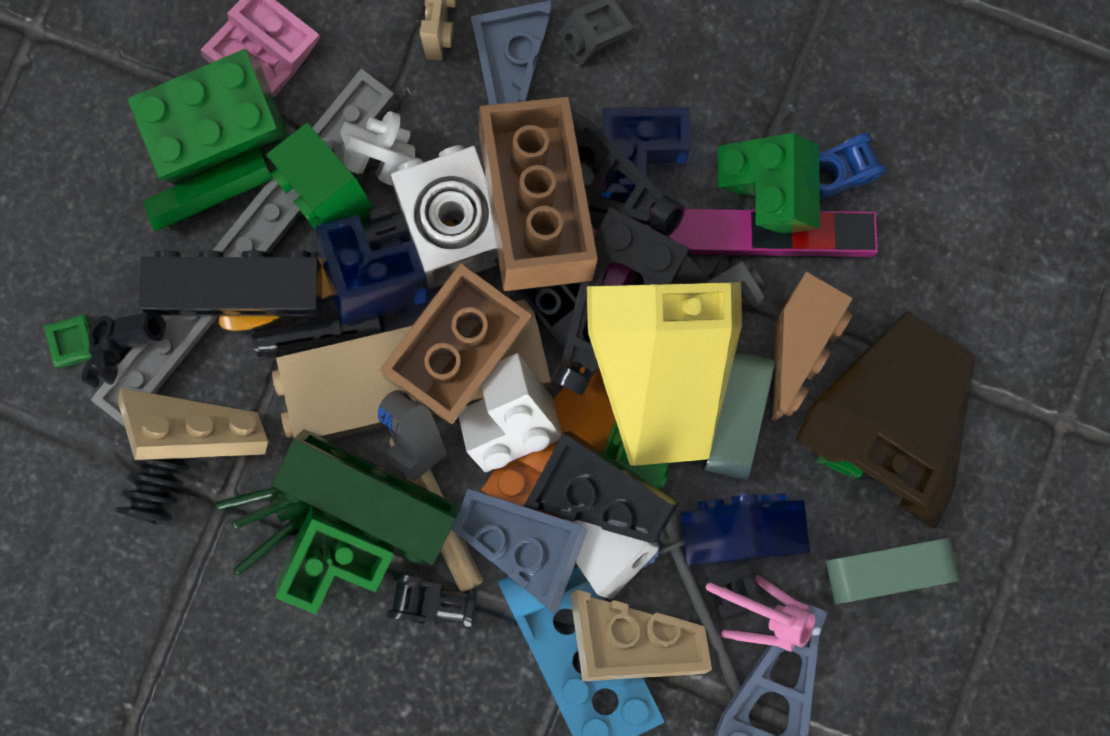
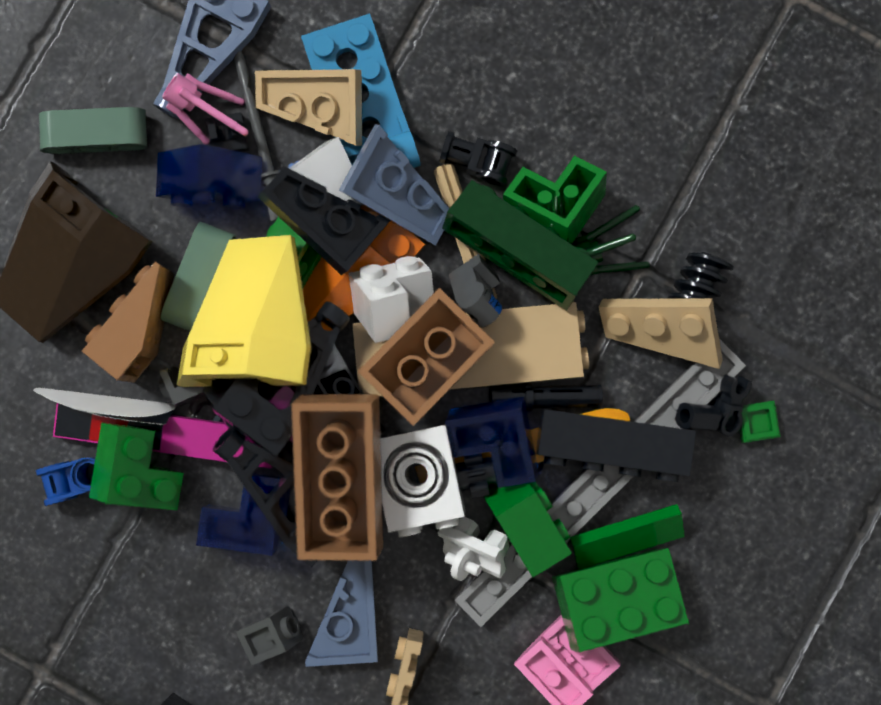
camera: 175 degrees left, 5 degrees up
(814, 252) = (111, 406): none -> white sticker

